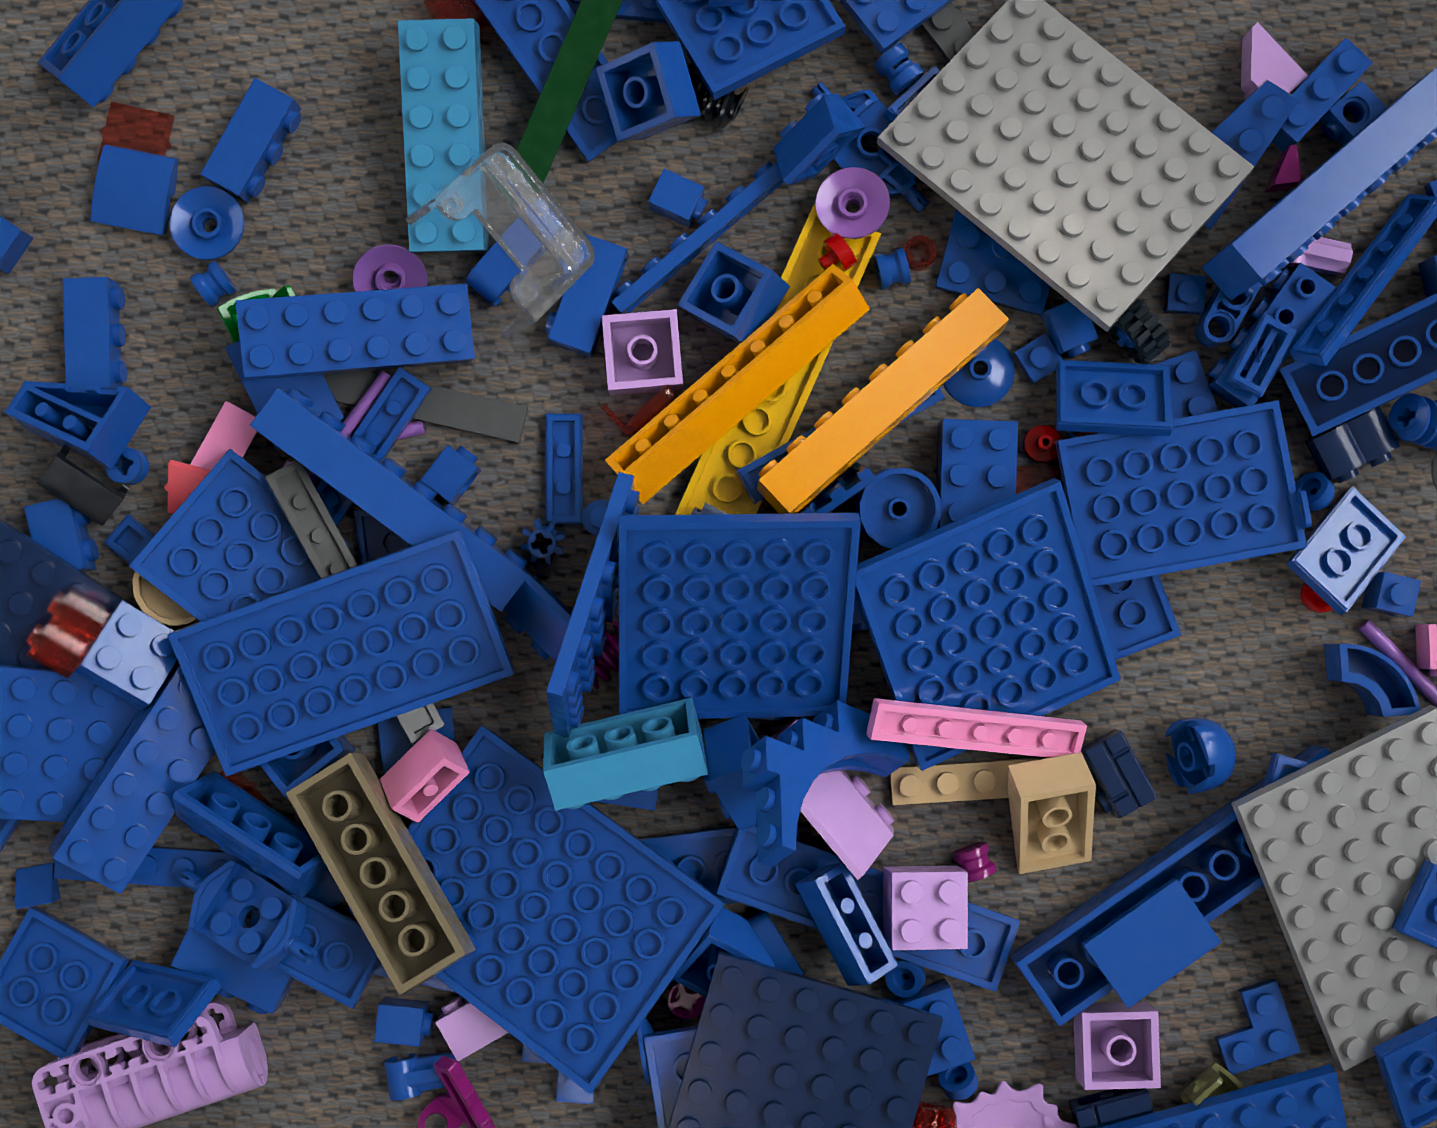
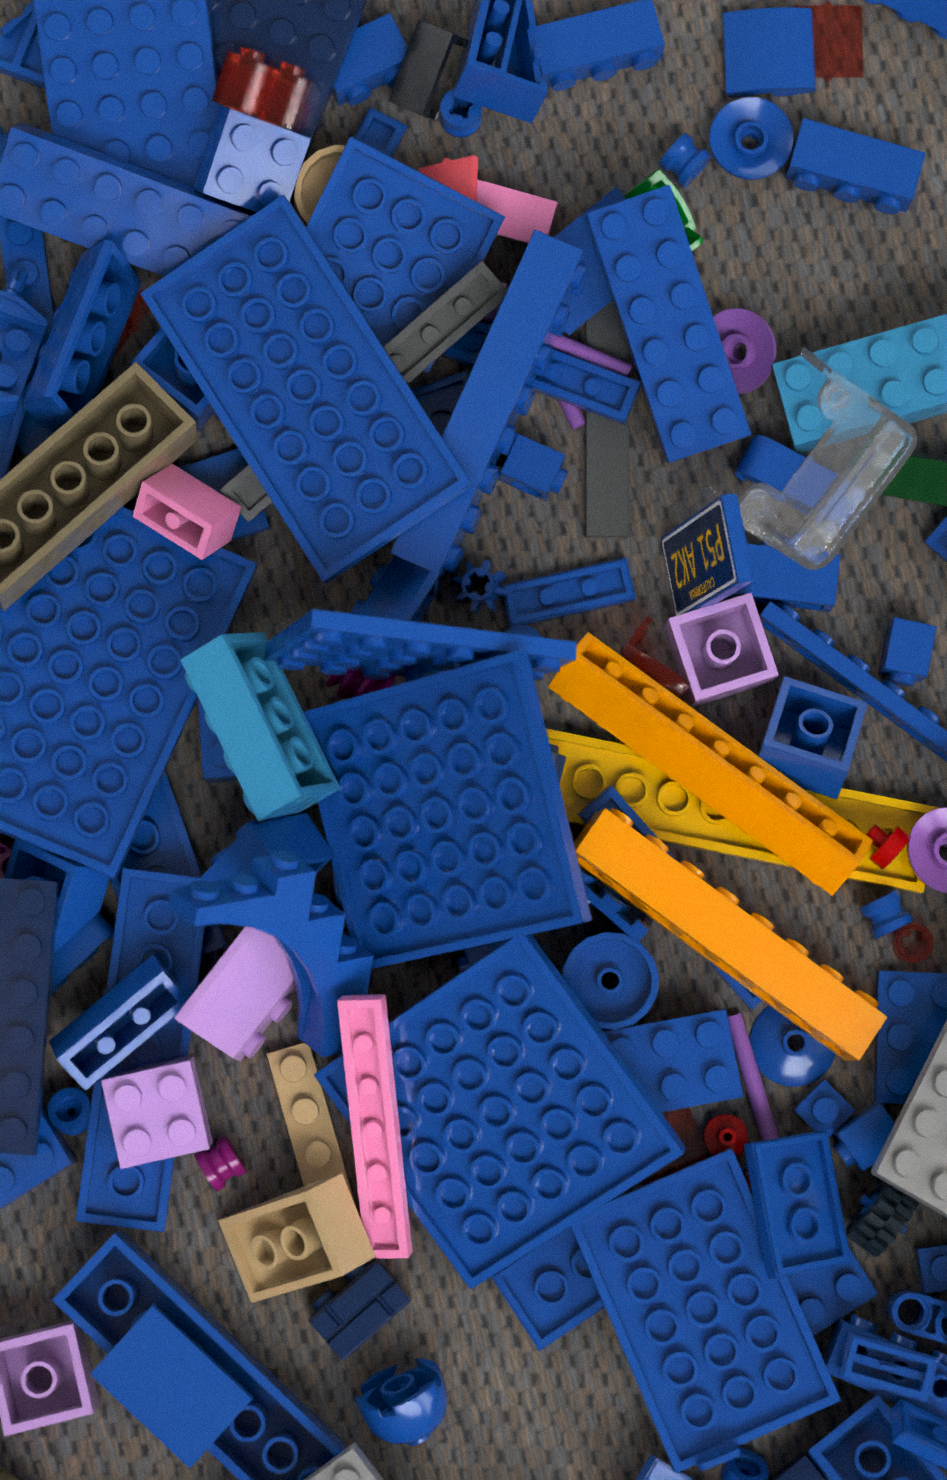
camera: 75 degrees right, 5 degrees down
(565, 344) = (707, 556): none -> tile
(1004, 410) = (752, 1078): none -> medium lavender bar

